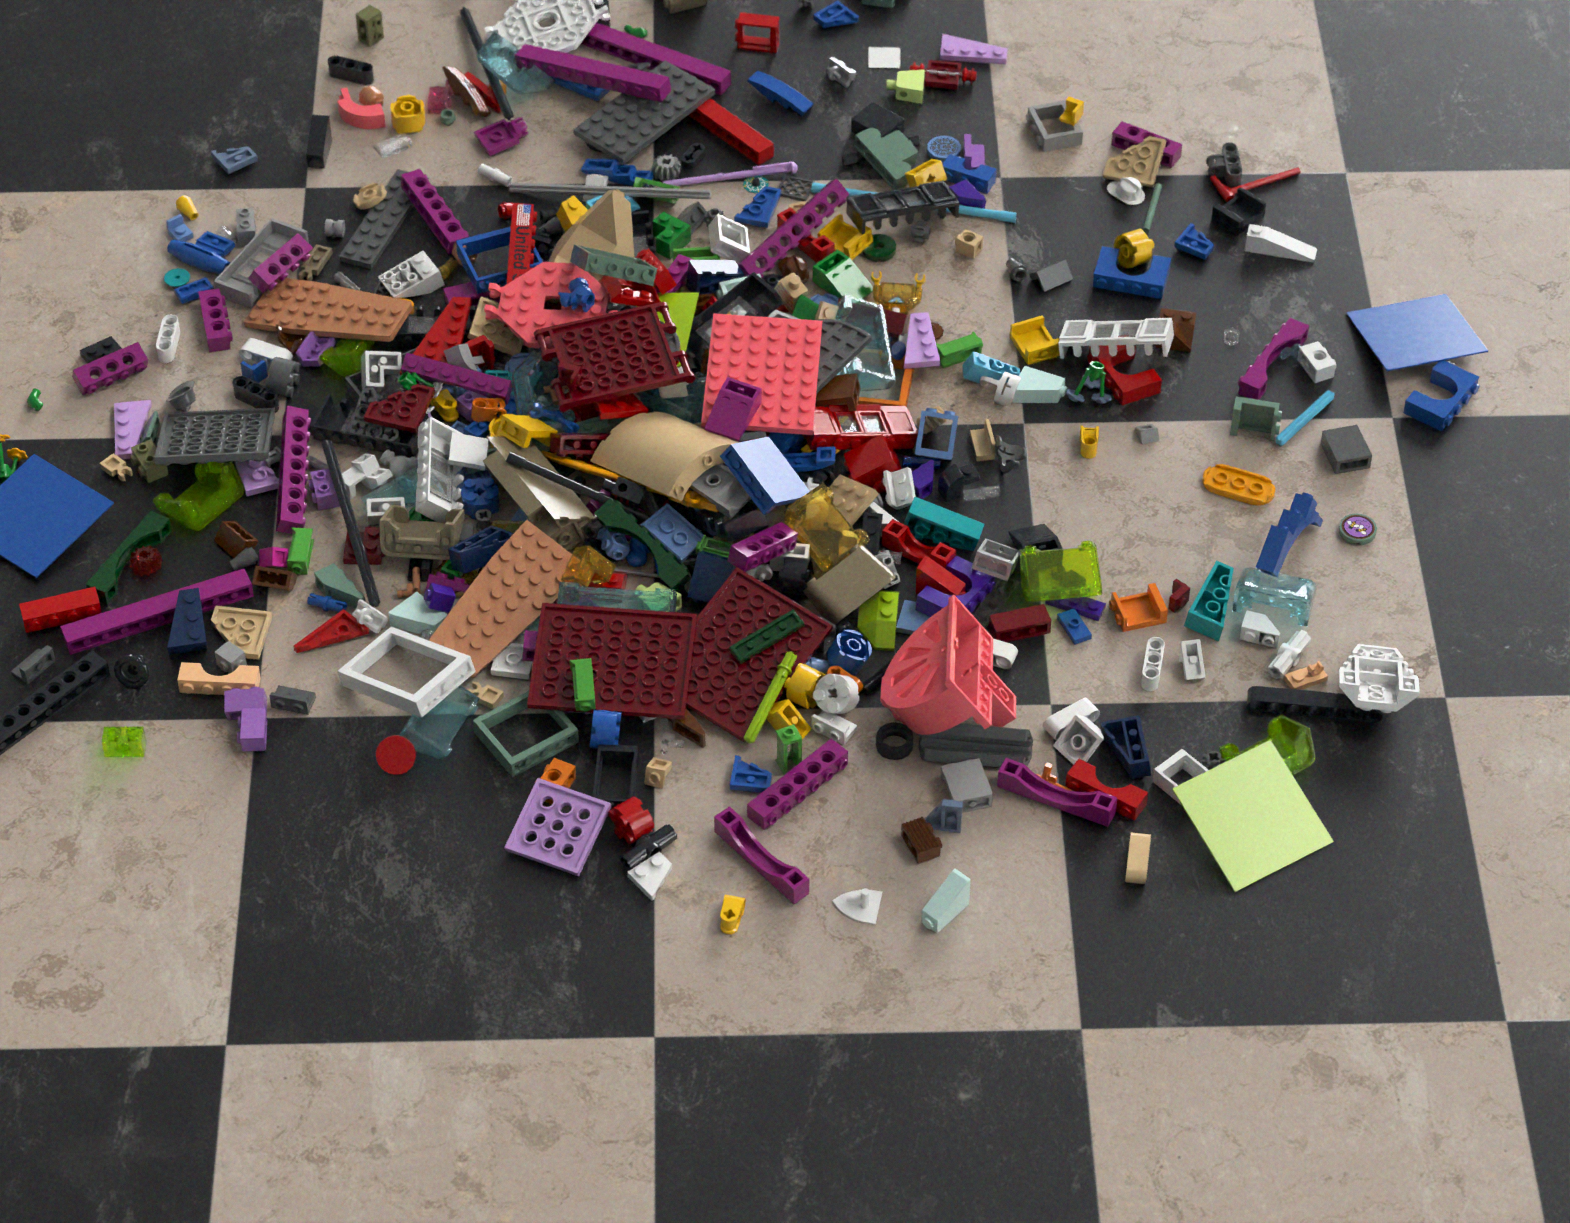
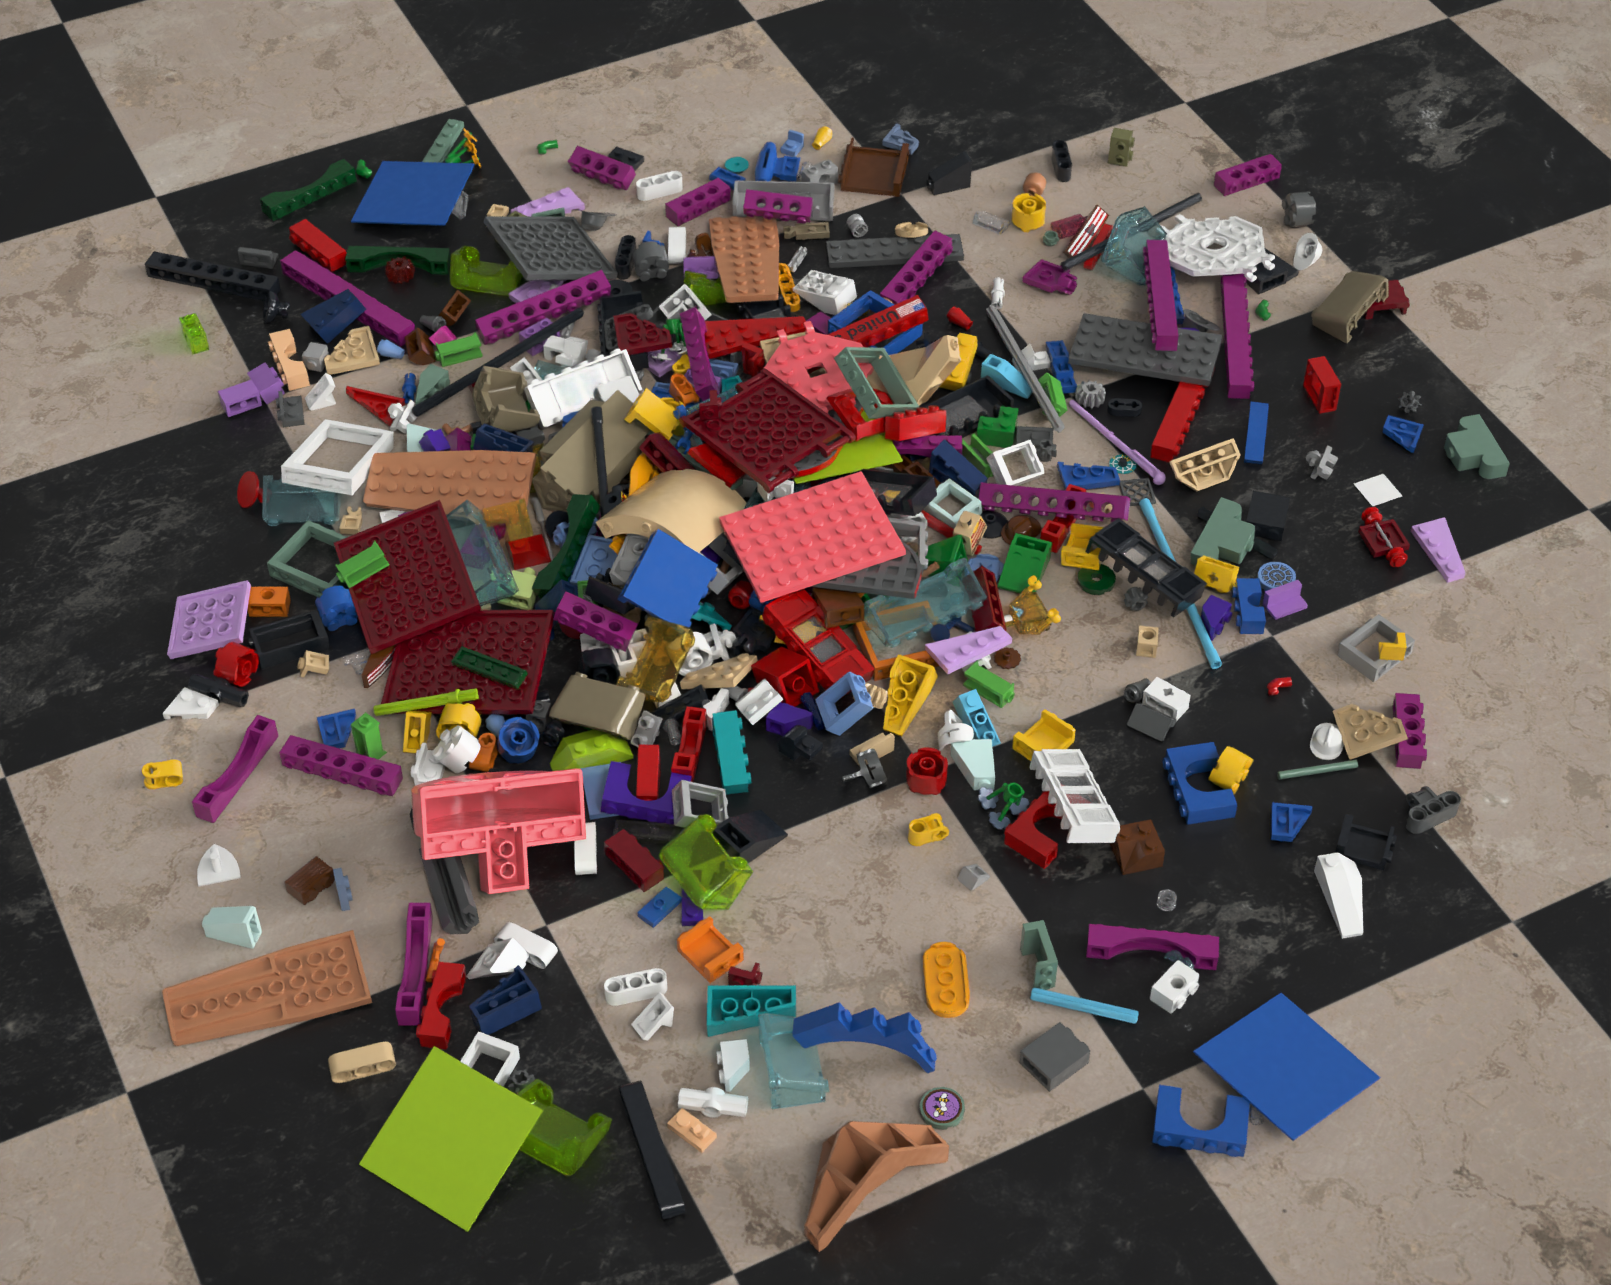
camera: 65 degrees right, 0 degrees up
(260, 601) = (389, 349): none -> medium blue cone
(264, 187) = (873, 170): none -> reddish brown panel
(290, 667) = (321, 394): none -> white slope
(360, 116) = (1009, 182): coral arch -> none
(461, 356) = (722, 350): light grey brick -> none
(579, 295) = (822, 378): blue animal -> none
(734, 409) = (735, 527): magenta slope -> none
(799, 132) = (1207, 465): none -> tan wedge
(811, 461) = (744, 612): blue slope -> none
(826, 311) = (940, 561): tan bracket -> none
(908, 85) = (1344, 518): yellowish green torso -> none
(935, 391) = (908, 689): none -> yellow wedge
(968, 784) = (394, 889): light grey panel -> none
(981, 493) = (800, 771): clear axle -> none
(1028, 900) = (269, 991): none -> nougat wing
(1032, 416) = (926, 771): none -> red brick
(1037, 256) = (1166, 698): none -> white brick
(1056, 194) = (1278, 683): none -> red arm
(1229, 193) = (1392, 820): red bar -> none
(1378, 679) = (698, 1185): white wedge -> none
(1406, 587) = (859, 1161): none -> nougat panel

